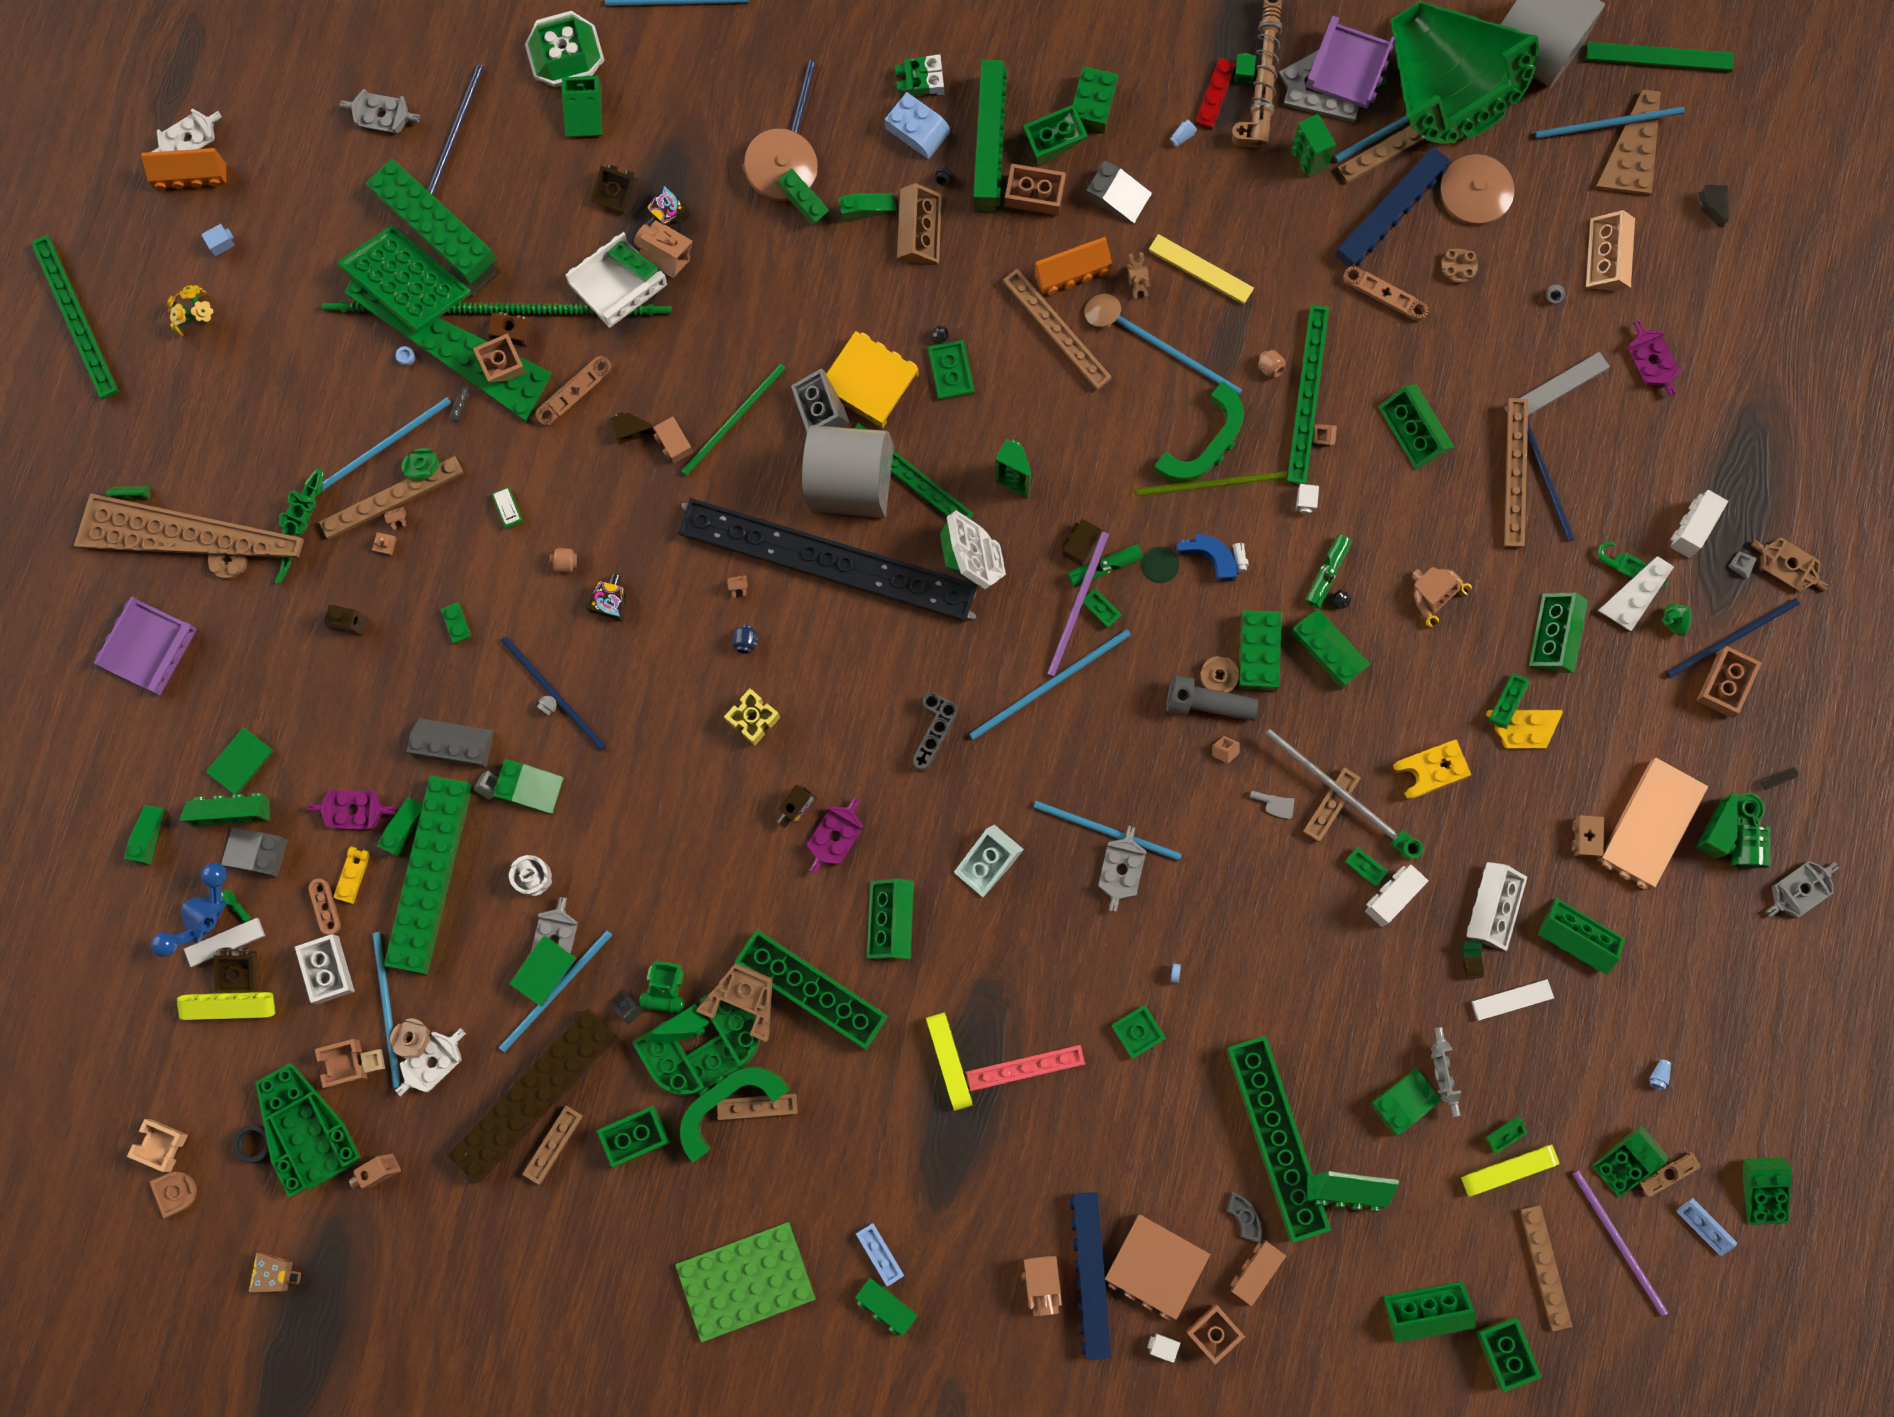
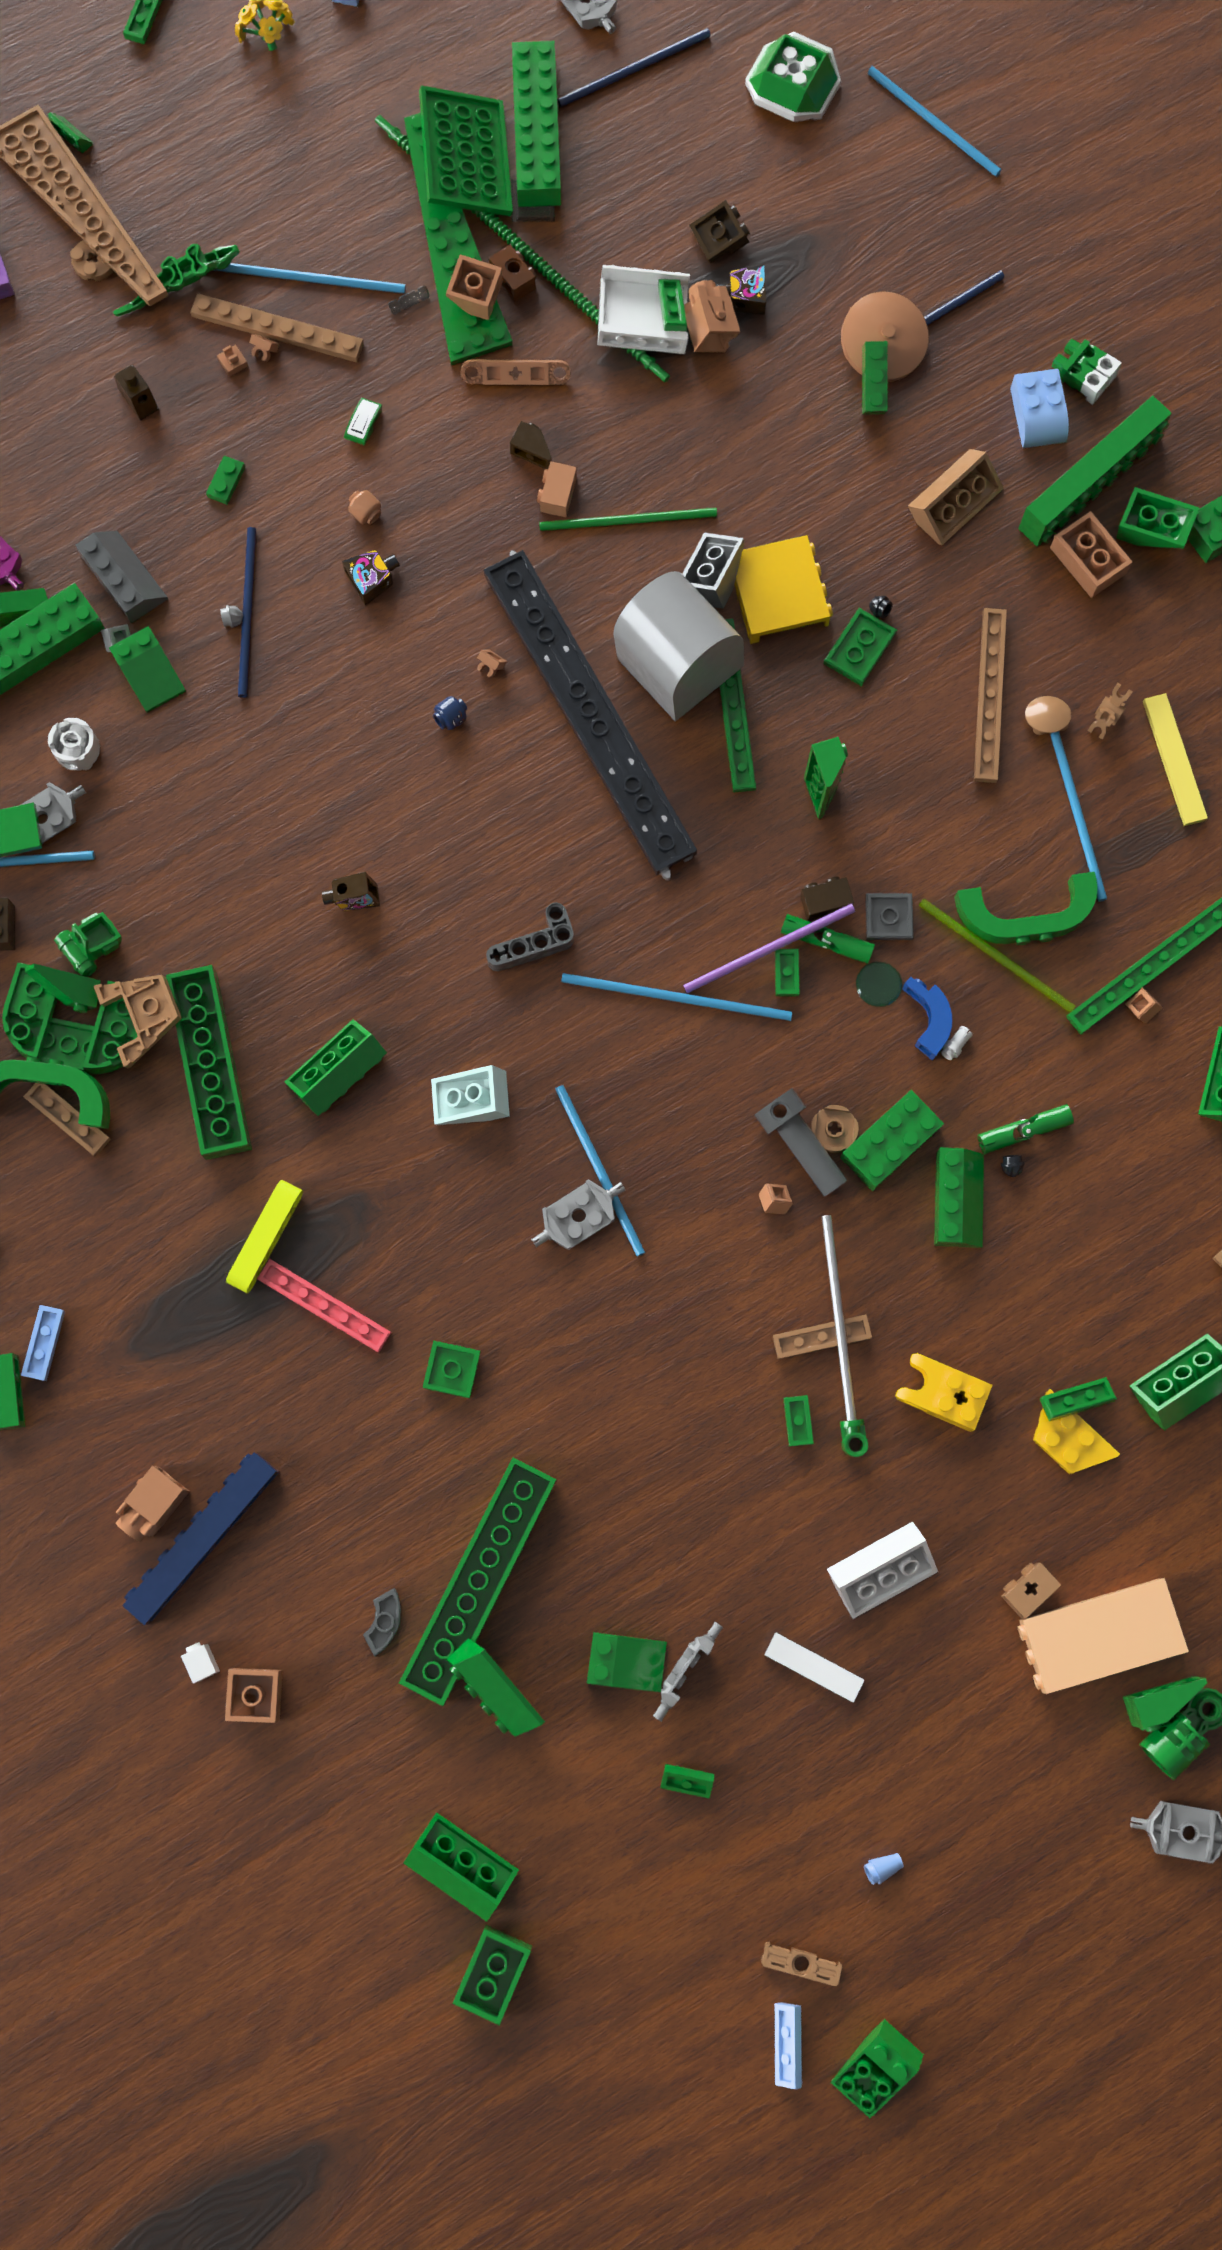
camera: 40 degrees right, 0 degrees up
(405, 356) = (405, 220): light blue tile -> none
(420, 464) = (326, 320): green tile -> none
(582, 106) = (761, 138): green slope -> none
(625, 1006) = (43, 929): clear smoke slope -> none
(752, 705) = (380, 774): light yellow brick -> none
(840, 820) = (342, 947): magenta plate -> none
(866, 205) = (925, 437): green slope -> none
(943, 176) = (1020, 473): black plate -> none
(971, 551) = (718, 813): white piece -> none
(1073, 266) = (1058, 651): orange slope -> none
(1117, 192) = (1164, 624): slope -> none
(1127, 518) = (889, 916): none -> dark grey tile
(1157, 1267) = (263, 1587): nougat panel -> none
(1175, 973) = (536, 1348): light blue tile -> none
(1257, 1272) = (344, 1679): nougat brick -> none
(1271, 363) = (1156, 899): nougat head -> none
(1276, 805) = (771, 1290): light grey piece -> none
(1307, 499) = (1069, 1047): white brick -> none
(1395, 895) = (798, 1470): white brick -> none
(1435, 590) = (1108, 1236): nougat torso -> none
(1472, 959) = (812, 1595): leg -> none
(1510, 1170) = (659, 1815): neon yellow beam -> none
(1545, 1268) = (605, 1934): medium nougat plate -> none
(1581, 936) = (934, 1672): green slope -> none
(1620, 1243) = (694, 1980): medium lavender piece -> none
(1630, 1161) = (777, 1917): green slope -> none

